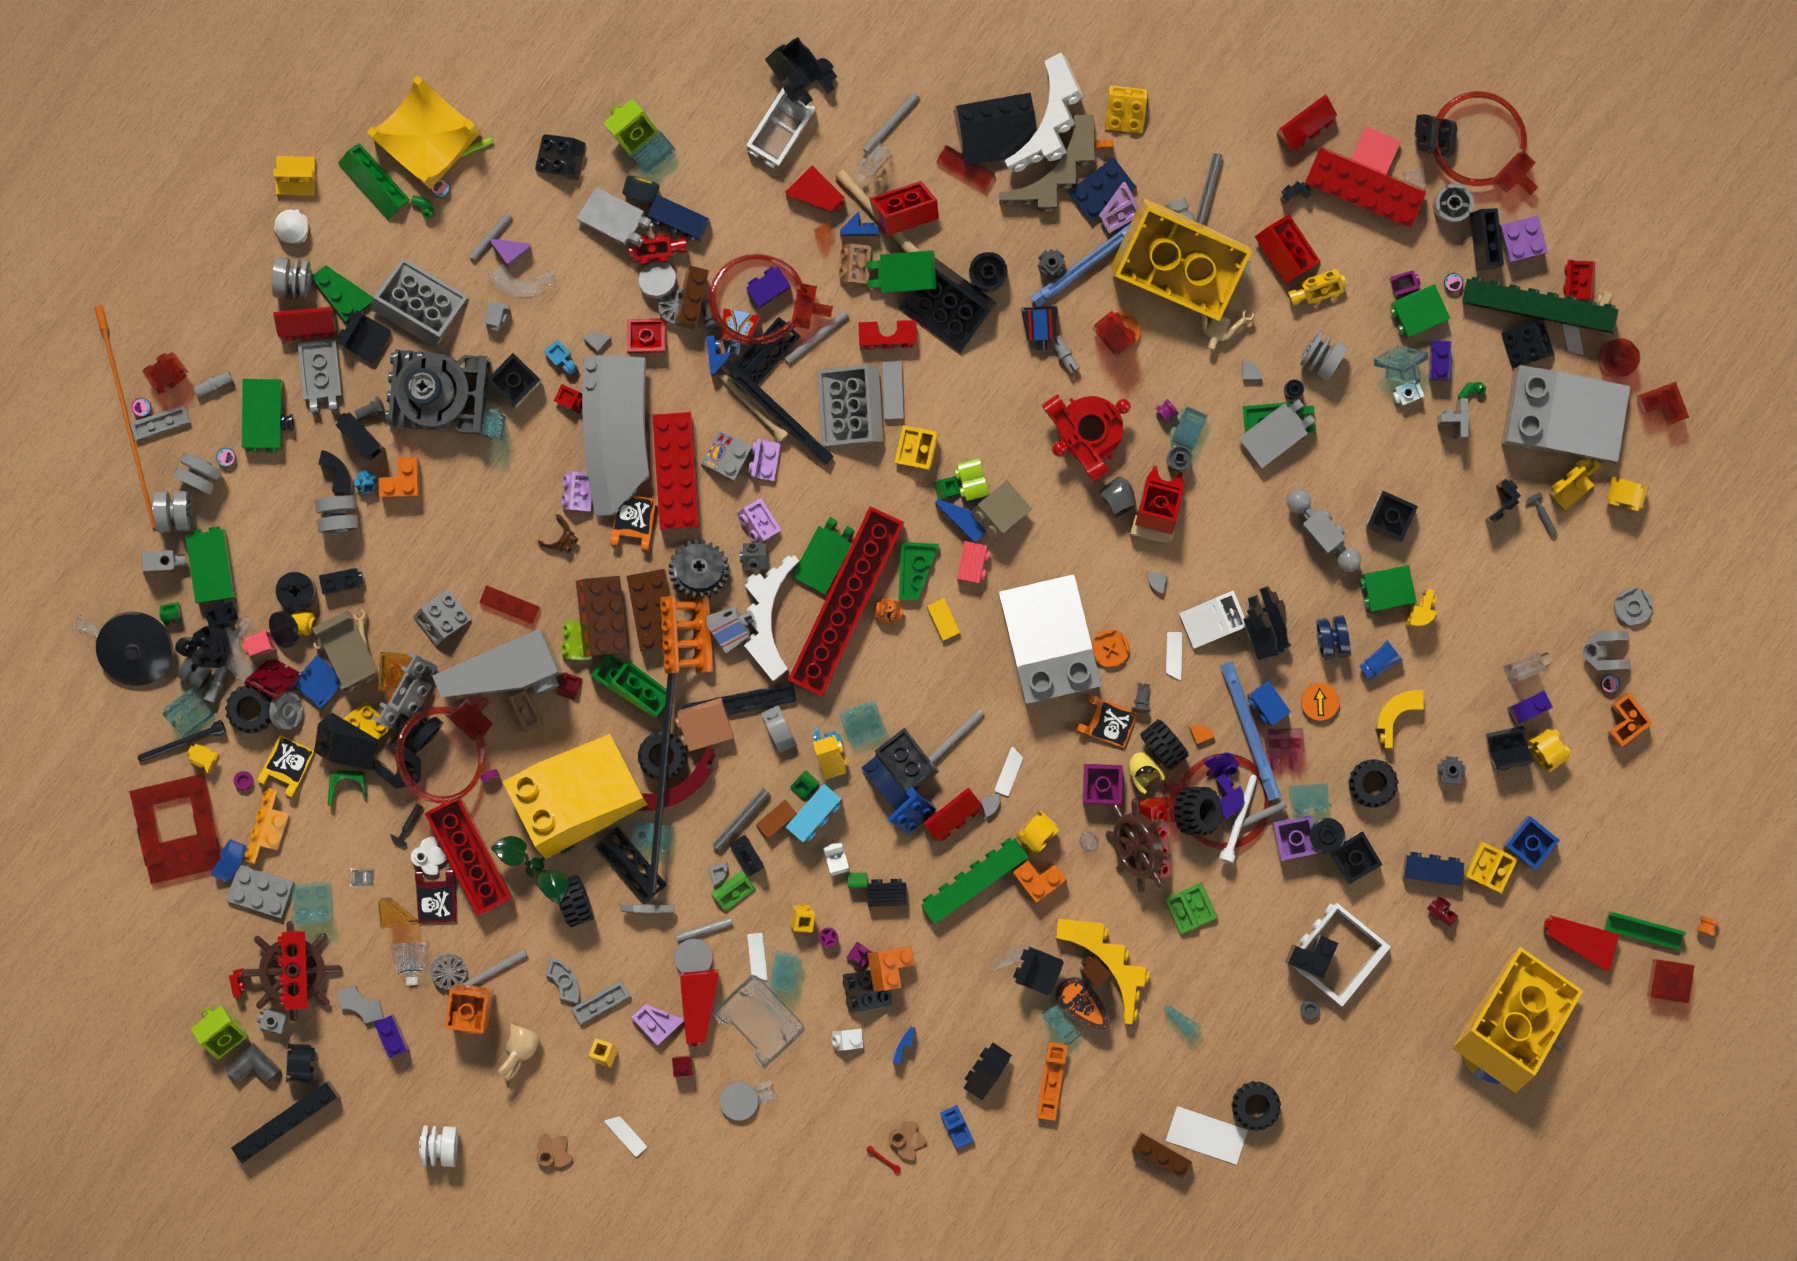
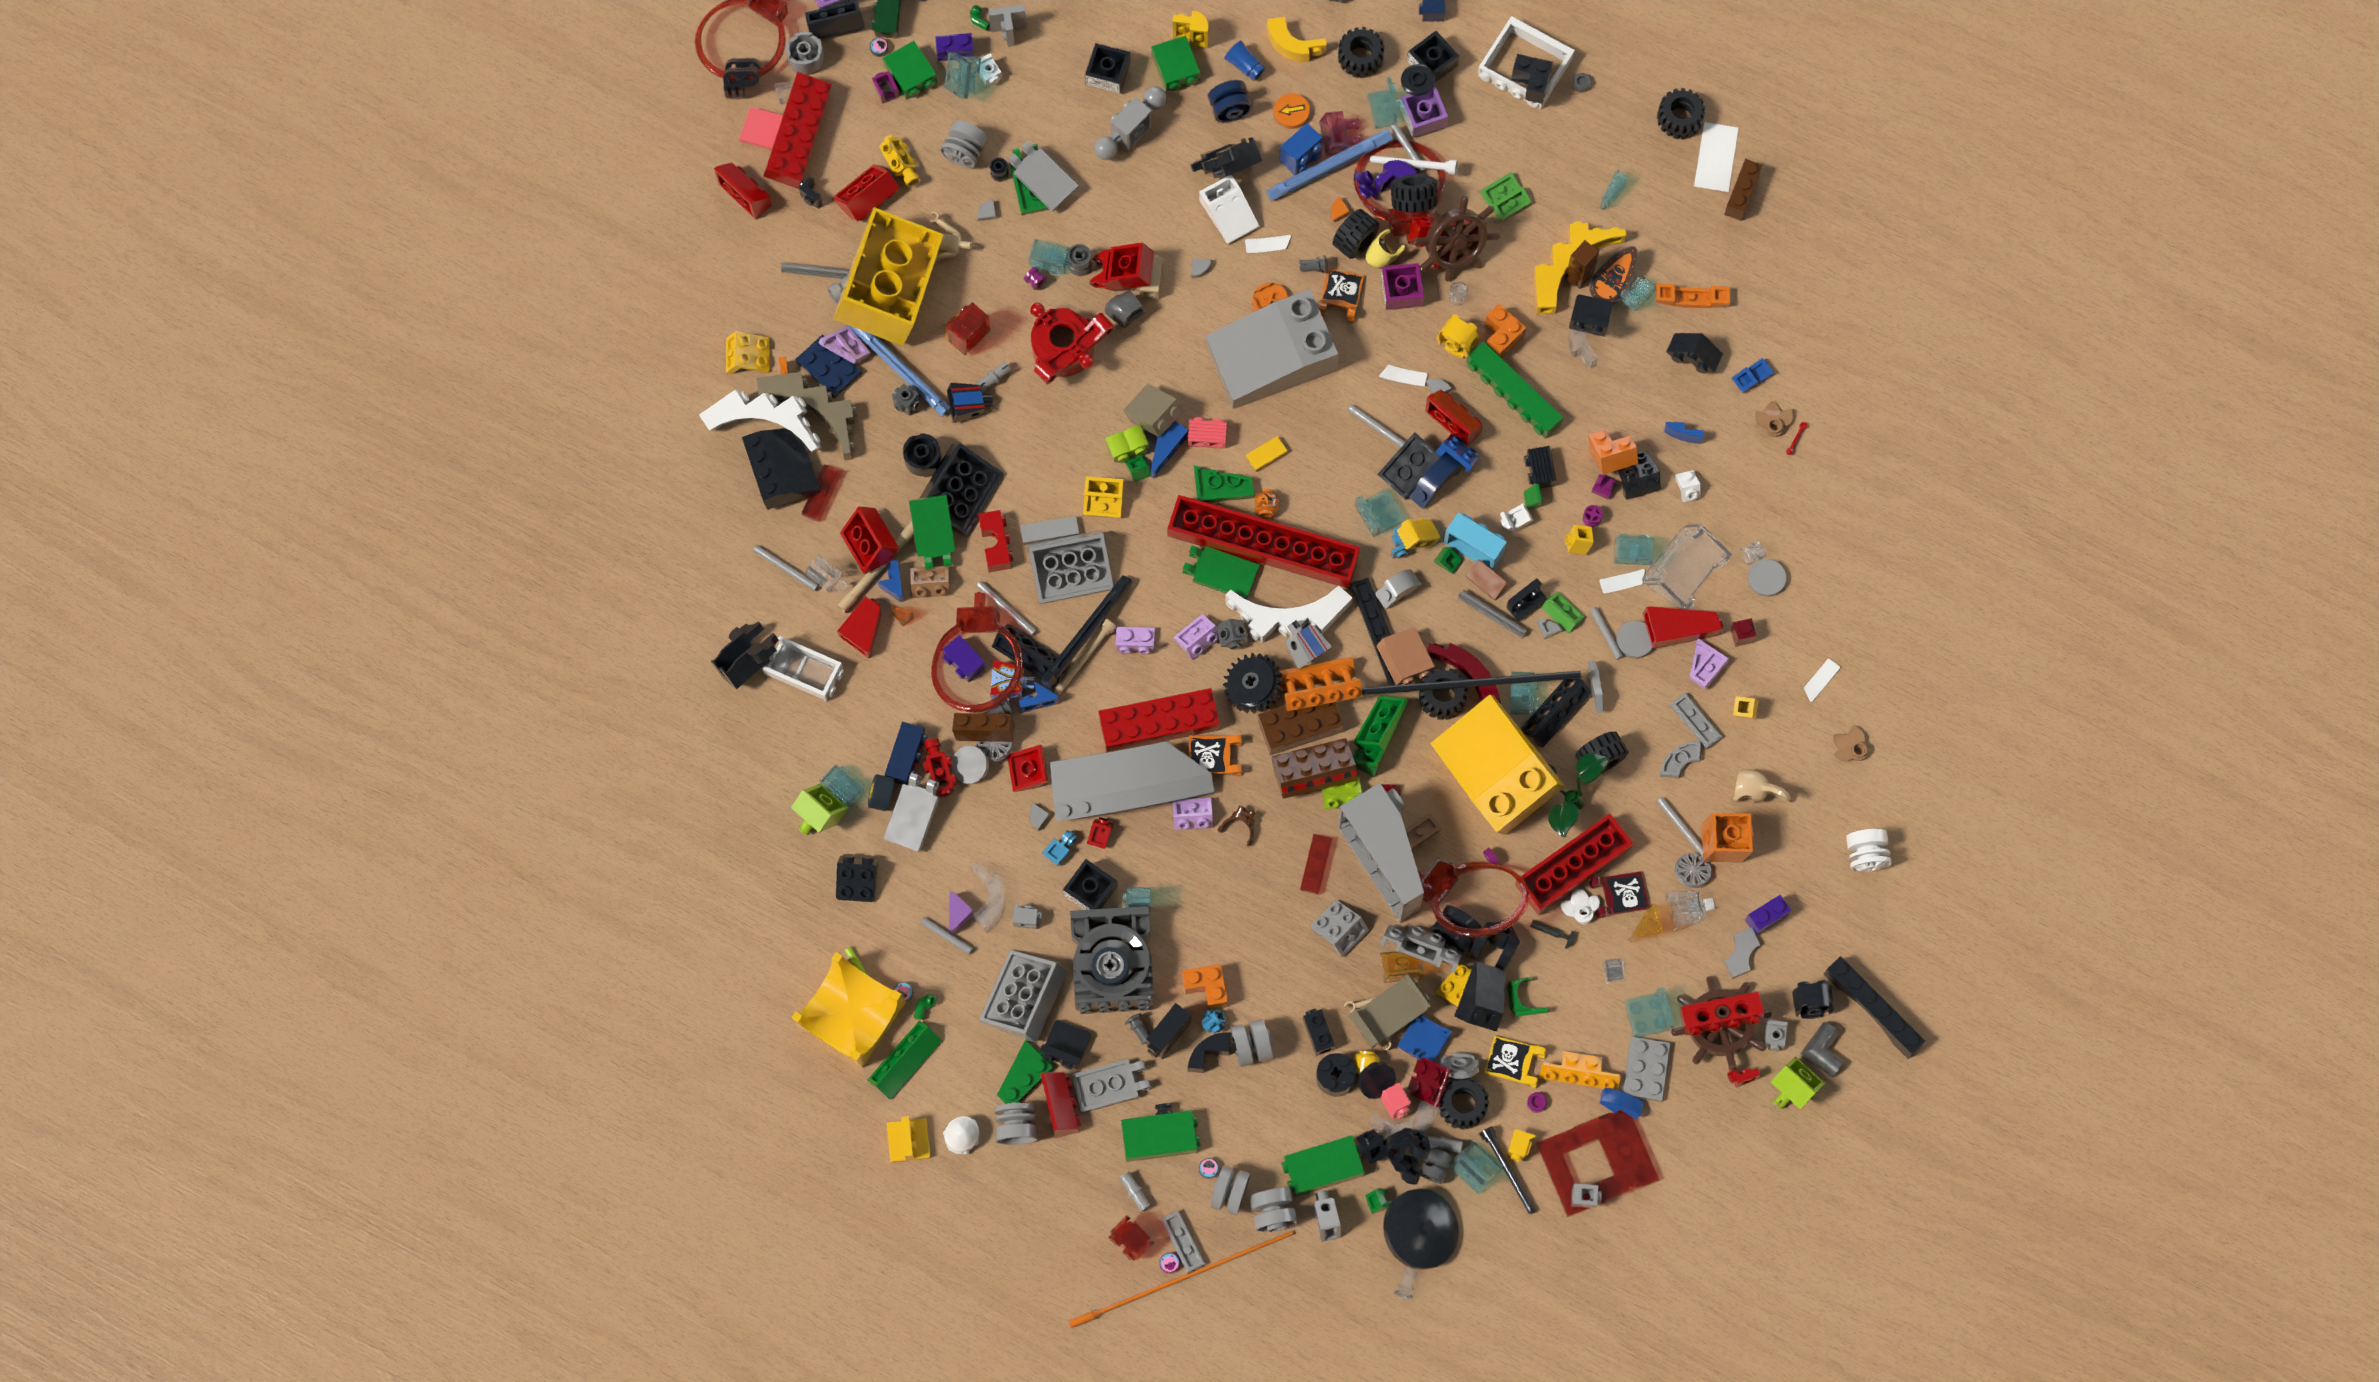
camera: 100 degrees left, 15 degrees down
(137, 803) = (1579, 1190): none -> light grey brick
(727, 455) = (1136, 674): light grey slope -> none

